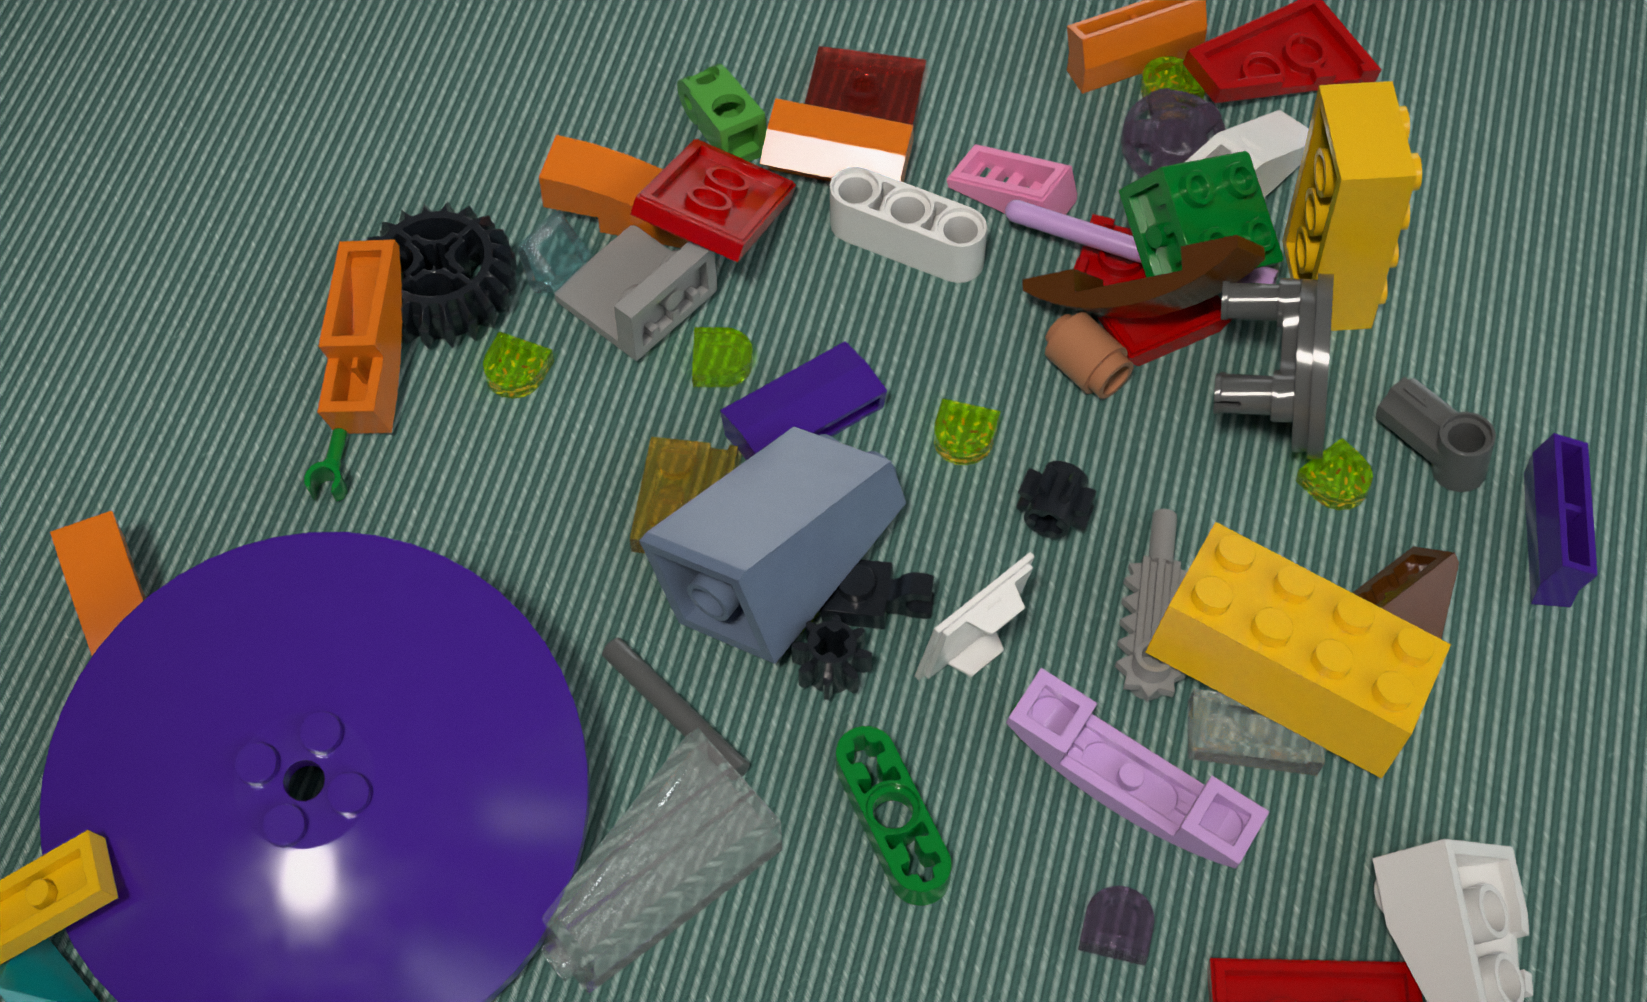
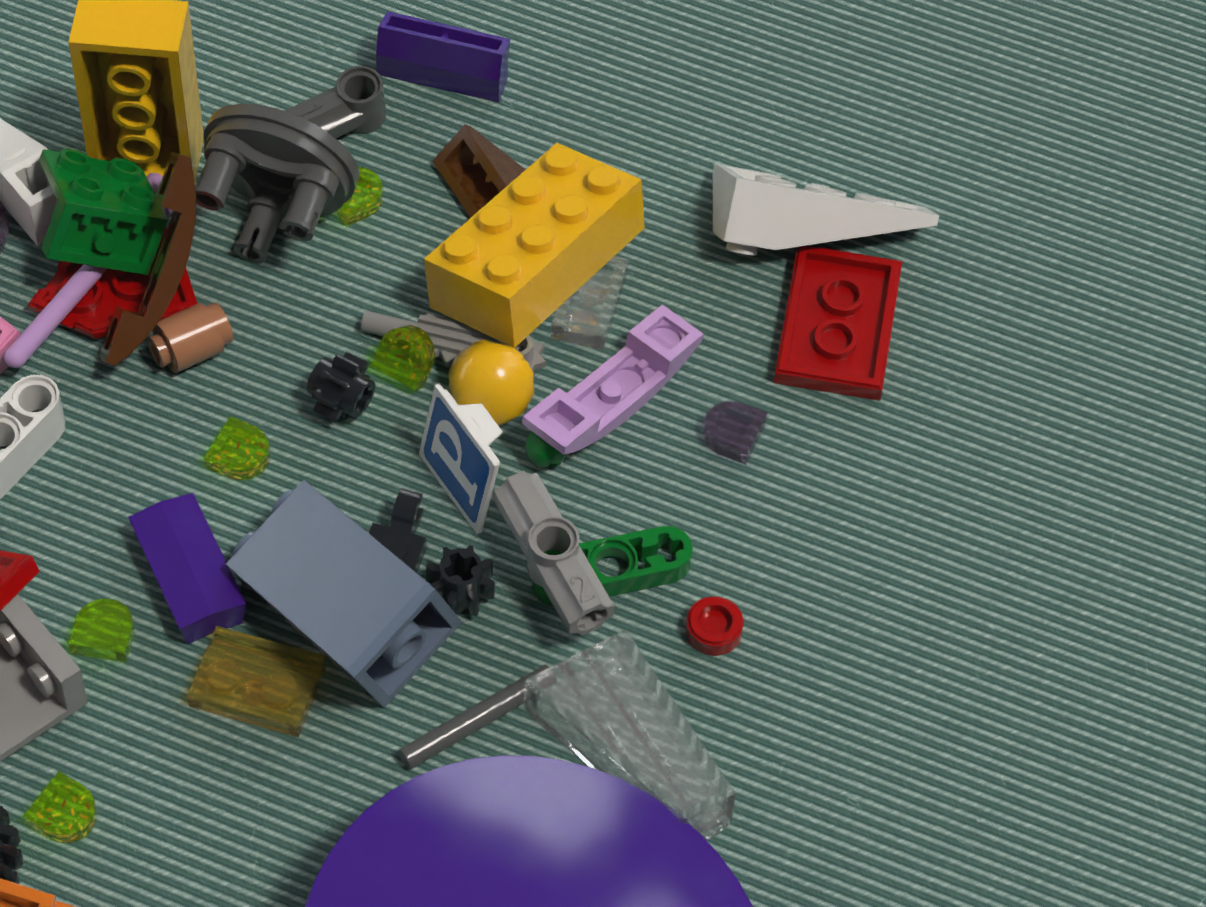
camera: 85 degrees left, 0 degrees up
(836, 938) = (714, 626): none -> red tile
(837, 752) = (564, 577): none -> light grey piece
(1095, 640) = (492, 376): none -> yellow hair
(1118, 558) = (405, 356): none -> clear neon green tile

